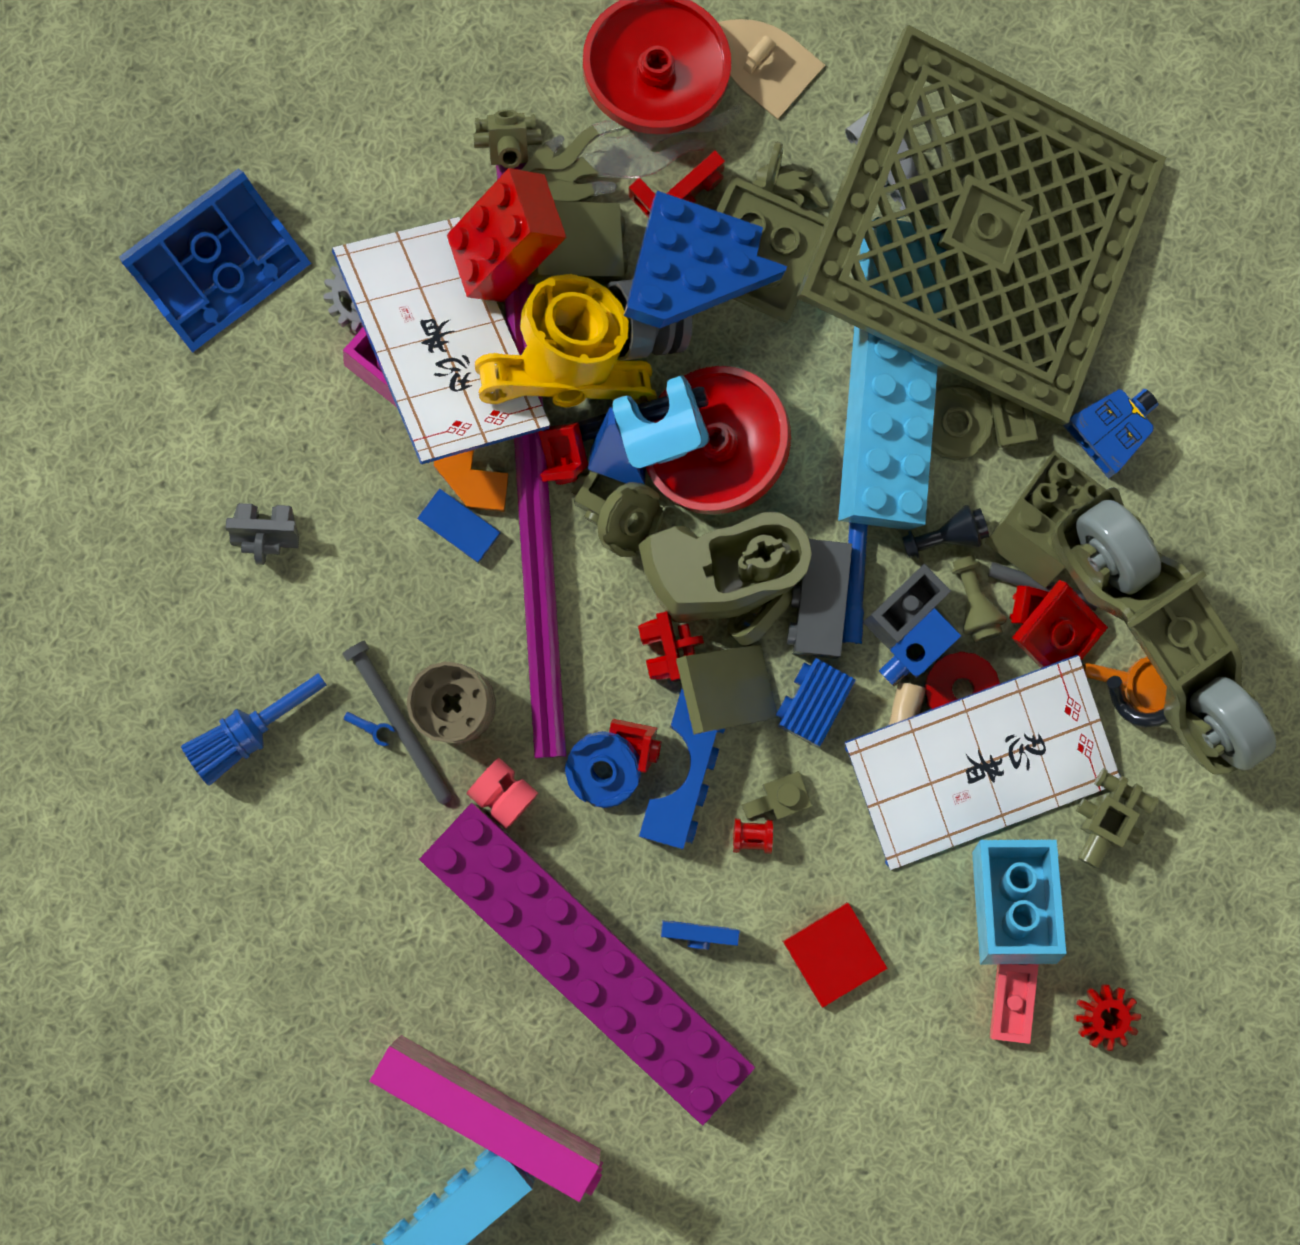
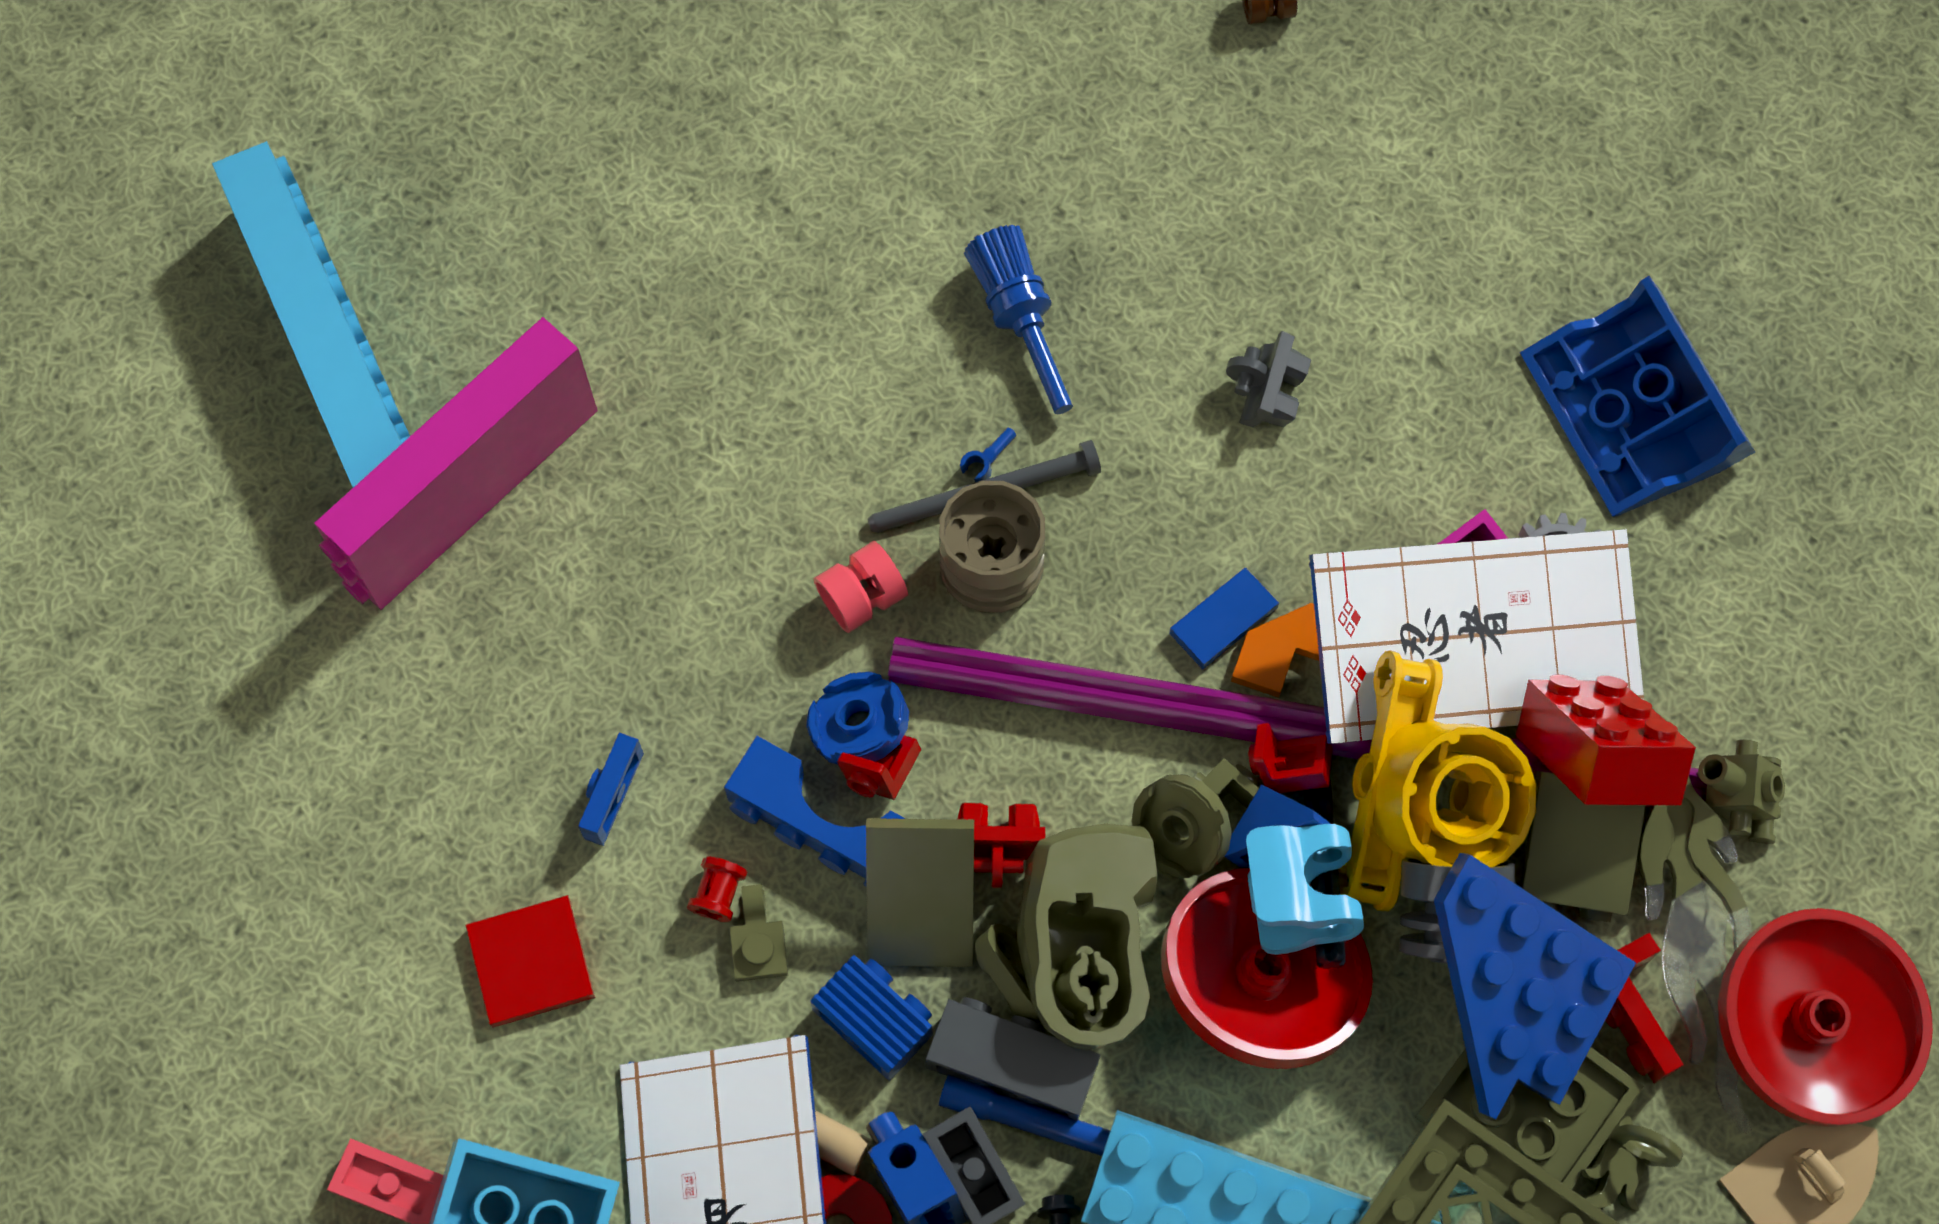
camera: 110 degrees right, 15 degrees down
(587, 963) = (611, 641): magenta brick -> none

